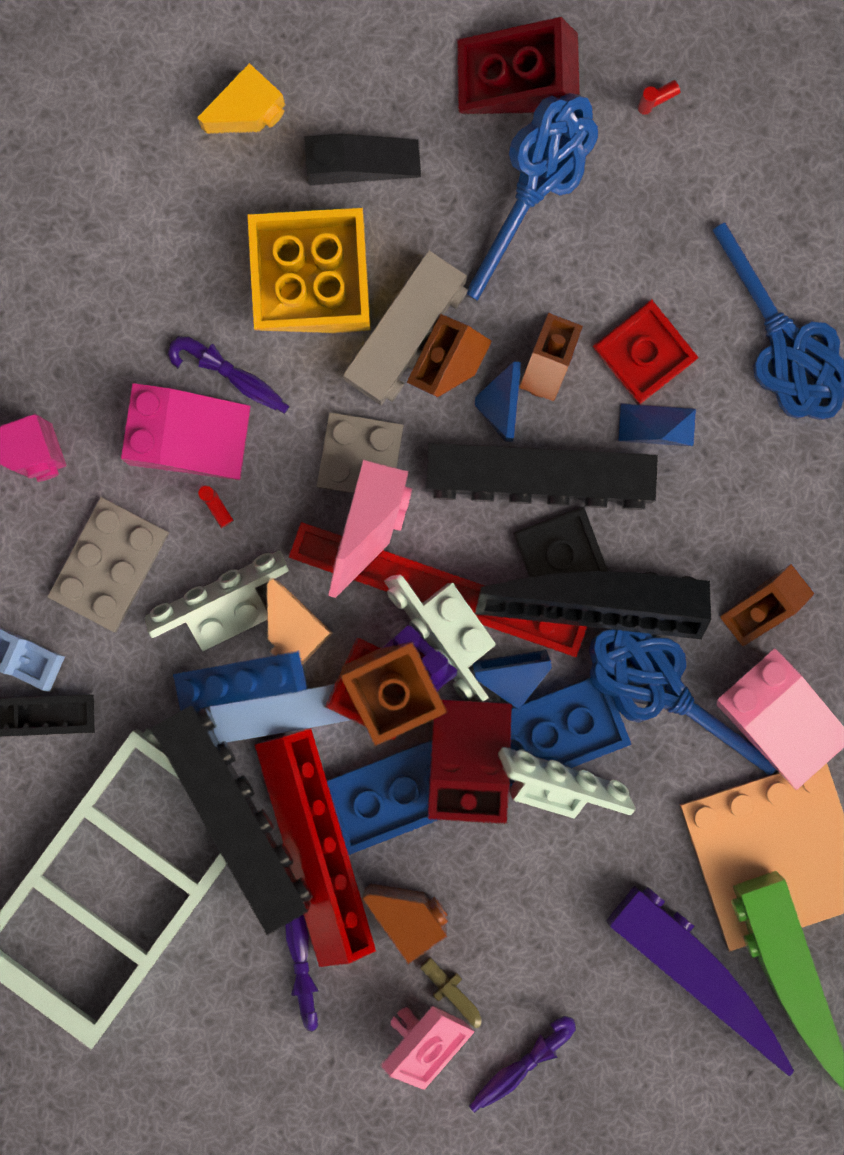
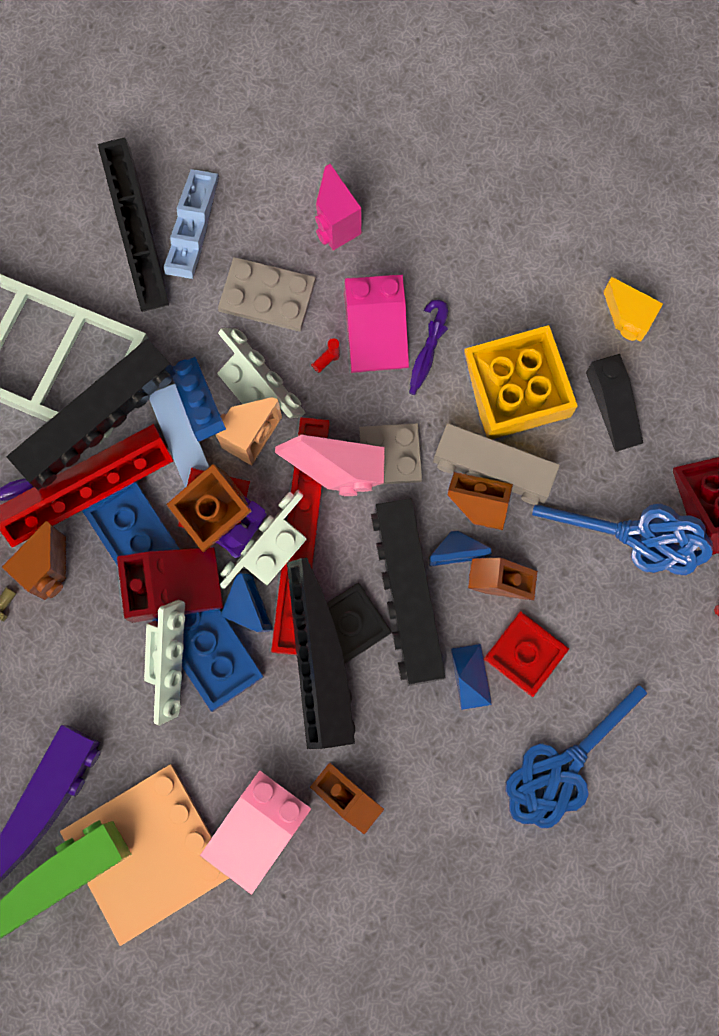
camera: 80 degrees right, 10 degrees down
(653, 671) = (254, 744): blue piece -> none

